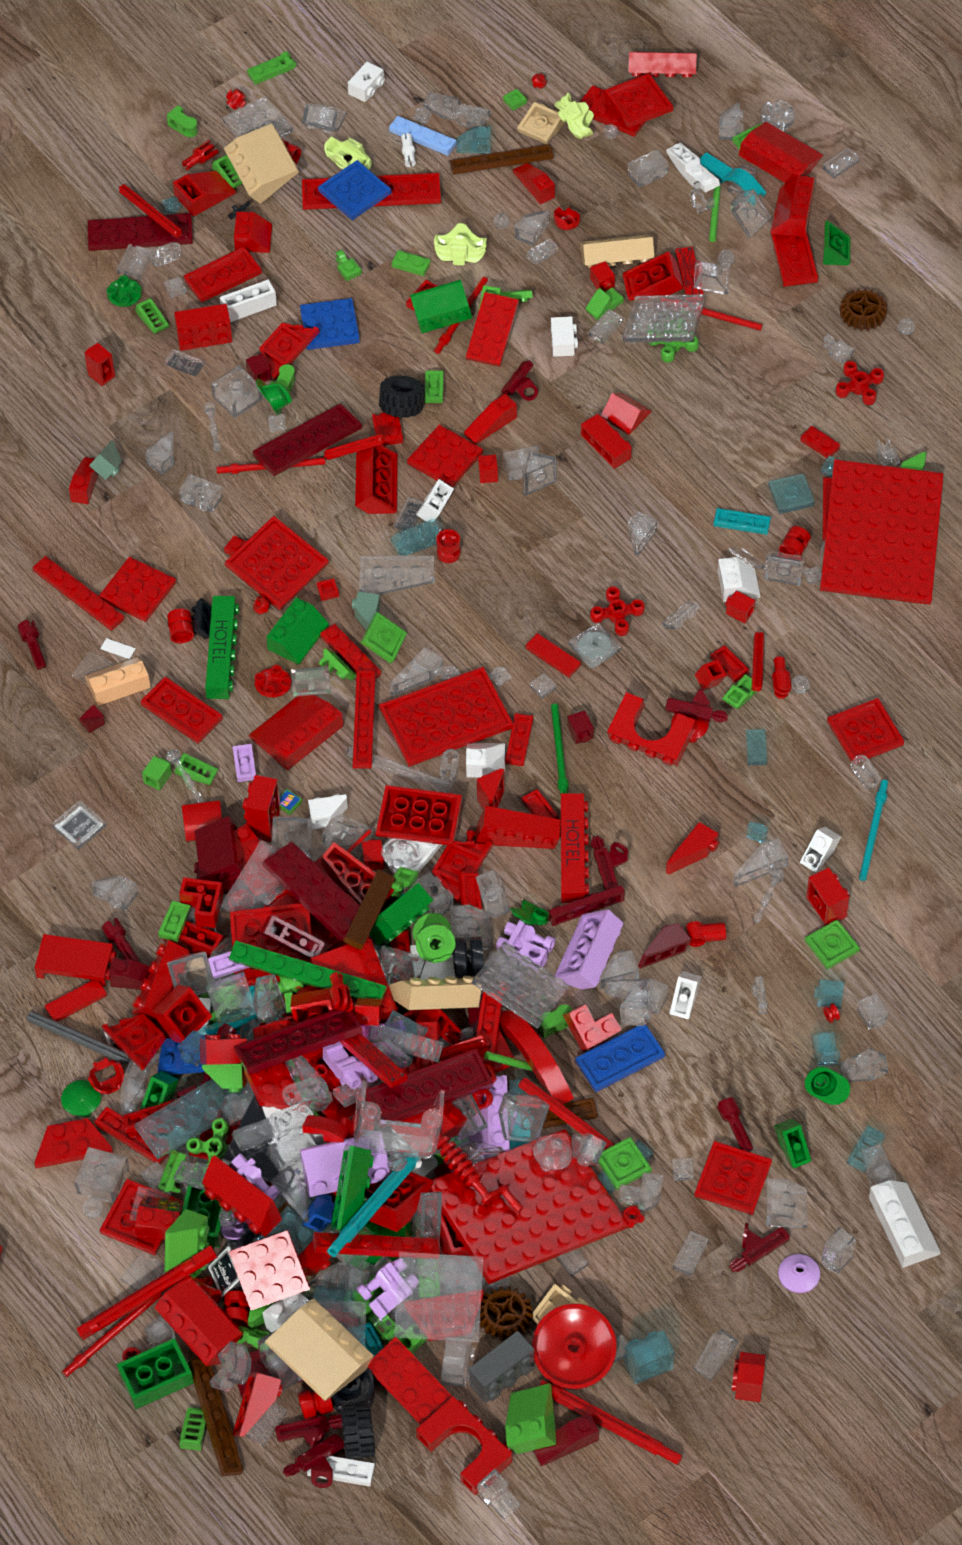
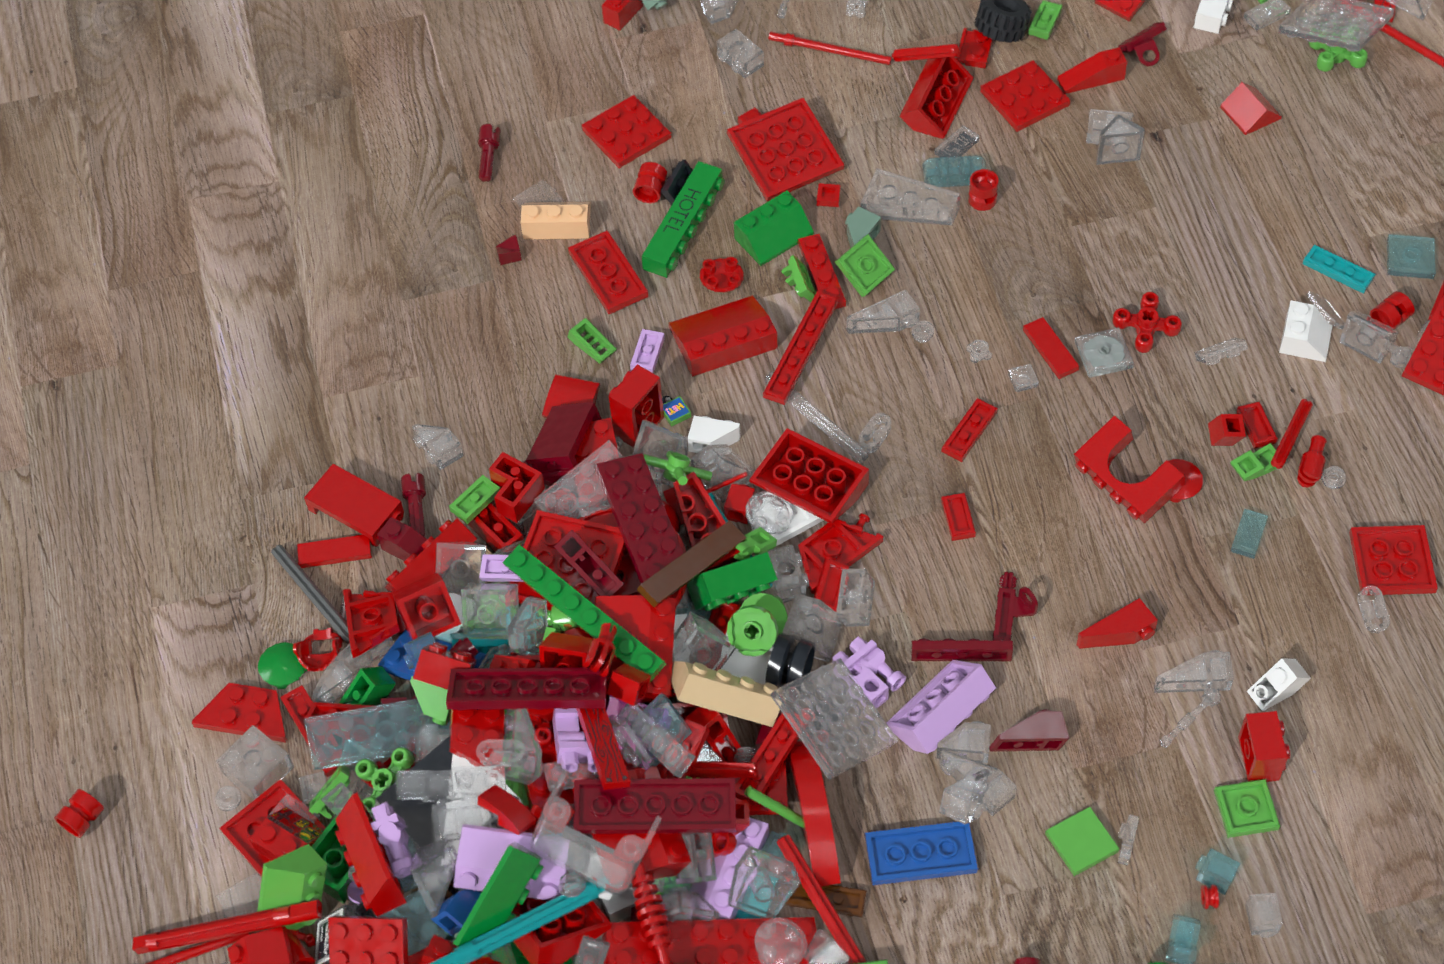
camera: 25 degrees right, 0 degrees up
(78, 593) = (562, 116): red plate -> none
(79, 825) = (438, 358): clear tile -> none
(117, 648) = (575, 186): white sticker -> none
(157, 773) = (547, 330): bright green brick -> none
(174, 757) = (570, 319): clear piece -> none
(261, 605) = (748, 189): red piece -> none
(307, 439) = (880, 32): dark red plate -> none
(310, 681) = (761, 286): clear brick -> none
(318, 843) = (677, 467): none -> bright green bar
(435, 501) = (990, 137): white brick -> none
(445, 716) = (896, 375): red plate -> none
(484, 758) = (918, 439): white slope -> none
(487, 469) = (1065, 121): red brick -> none
(491, 788) = (908, 476): red slope -> none
(516, 829) = (919, 531): red wedge -> none
(531, 914) = (890, 637): green plate -> none
(554, 1021) = (864, 778): bright green leg -> none
(562, 782) = (998, 496): green bar -> none
(572, 847) = (975, 576): red brick -> none
(580, 727) = (1046, 439): dark red brick -> none
(587, 1030) = (894, 806): brick -> none
(606, 440) = (1214, 132): red brick -> none
(641, 531) = (1213, 242): clear slope -> none
(685, 994) = (1034, 803): white slope -> none
(699, 708) = (1196, 464): dark red piece -> none
(703, 933) = (1086, 735): red piece -> none
(728, 1008) = (1082, 841): none -> bright green tile
(740, 606) = (1296, 363): red brick -> none
(757, 832) = (1207, 635): clear light blue plate -> none
(880, 799) = (1379, 649): teal bar -> none

